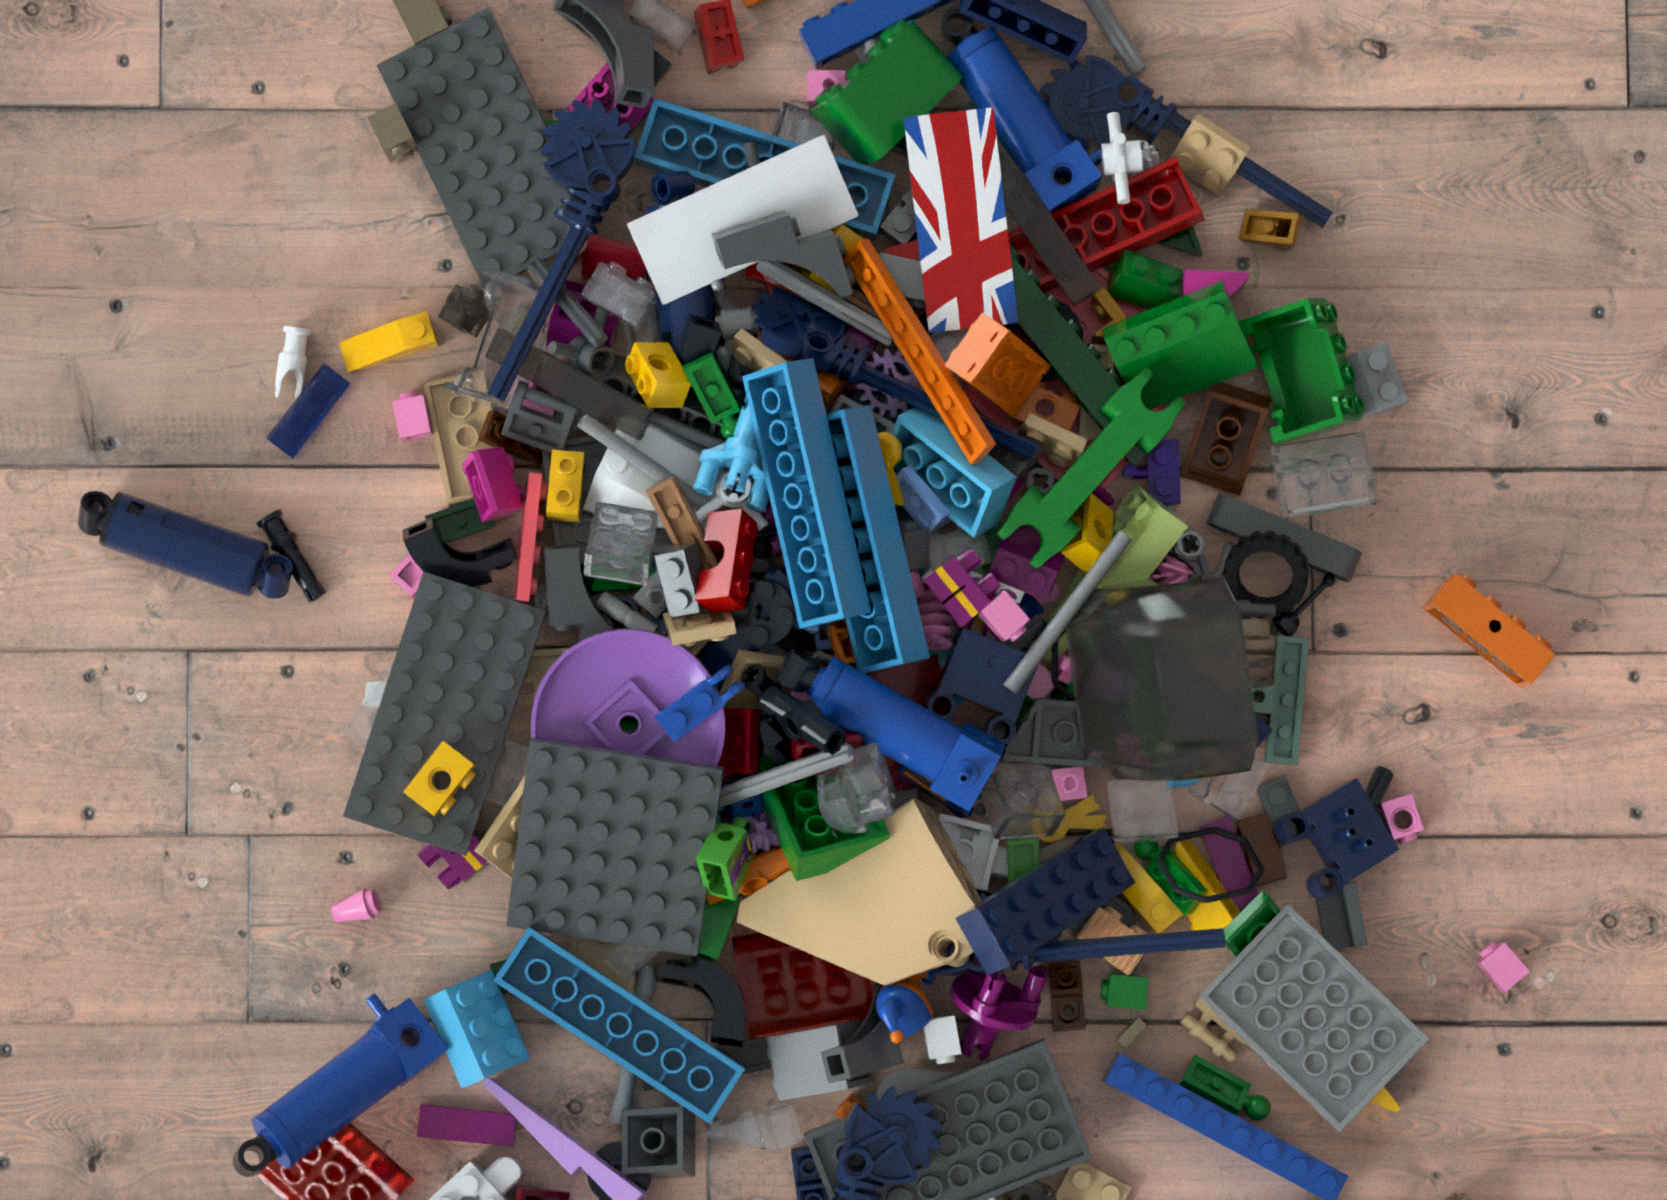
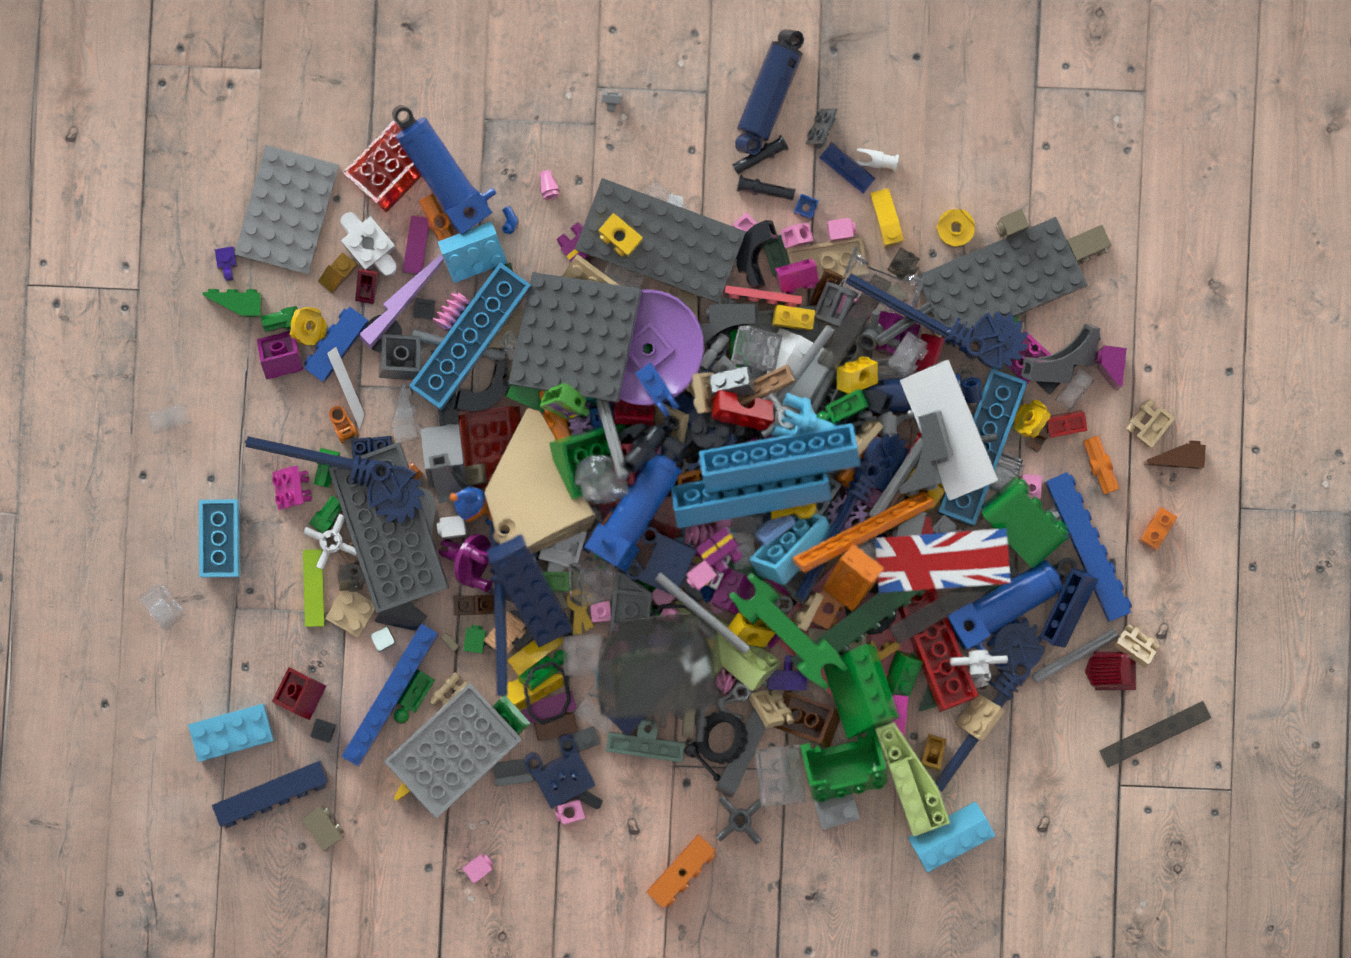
camera: 90 degrees right, 0 degrees up
(206, 808) = (611, 98): none -> light grey tile
(240, 455) = (823, 121): none -> dark grey hinge
(346, 559) = (756, 187): none -> black pin
(370, 466) = (806, 200): none -> blue piece
(401, 210) = (955, 238): none -> yellow plate
(408, 1098) = (432, 211): none -> orange piece
(420, 967) = (511, 221): none -> blue arm
(425, 488) = (796, 235): none -> bright pink brick
(574, 1106) = (424, 309): none -> black plate
(577, 1058) = (452, 311): none -> bright pink piece
(723, 81) = (1031, 427): none -> yellow plate
(747, 81) = (1036, 442): none -> reddish brown piece
(850, 1003) = (476, 474): none -> dark tan tile
(1093, 1108) = (403, 616): none -> black slope
(1131, 1145) = (383, 639): none -> slope
(1218, 499) = (767, 708): none -> tan plate
(1325, 257) = (913, 784): none -> yellowish green wedge
(1387, 548) = (733, 826): none -> dark grey bar
(1405, 193) = (965, 831): none -> medium azure slope

